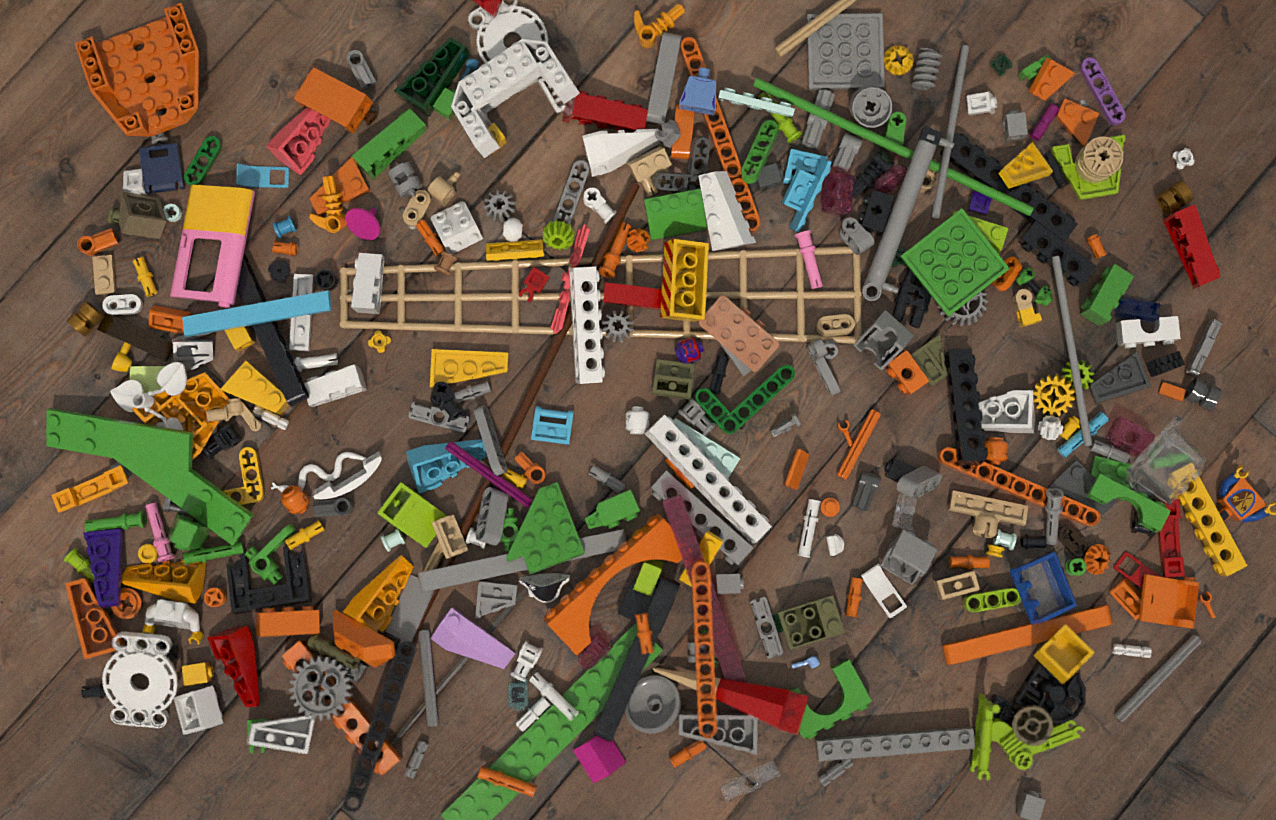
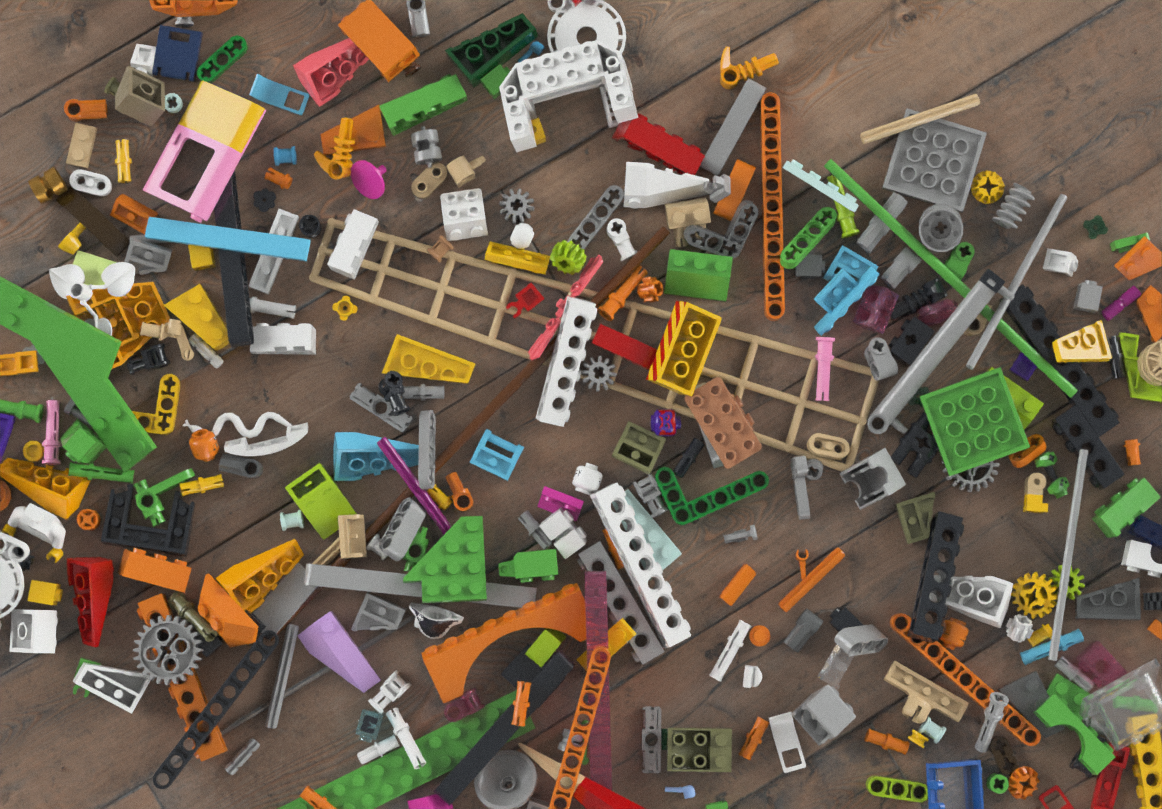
camera: 20 degrees right, 0 degrees up
(430, 237) = (433, 216): orange axle -> none
(621, 449) = (553, 500): none -> dark pink bracket
(630, 471) = (565, 533): none -> white piece
(699, 94) = (764, 157): medium blue torso -> none
(723, 212) = (748, 289): white wedge -> none
(729, 583) = (627, 681): light grey brick -> none
(917, 377) = (896, 529): orange brick -> none
(956, 585) = (865, 760): tan brick -> none
(1033, 542) = (961, 742): black pin -> none

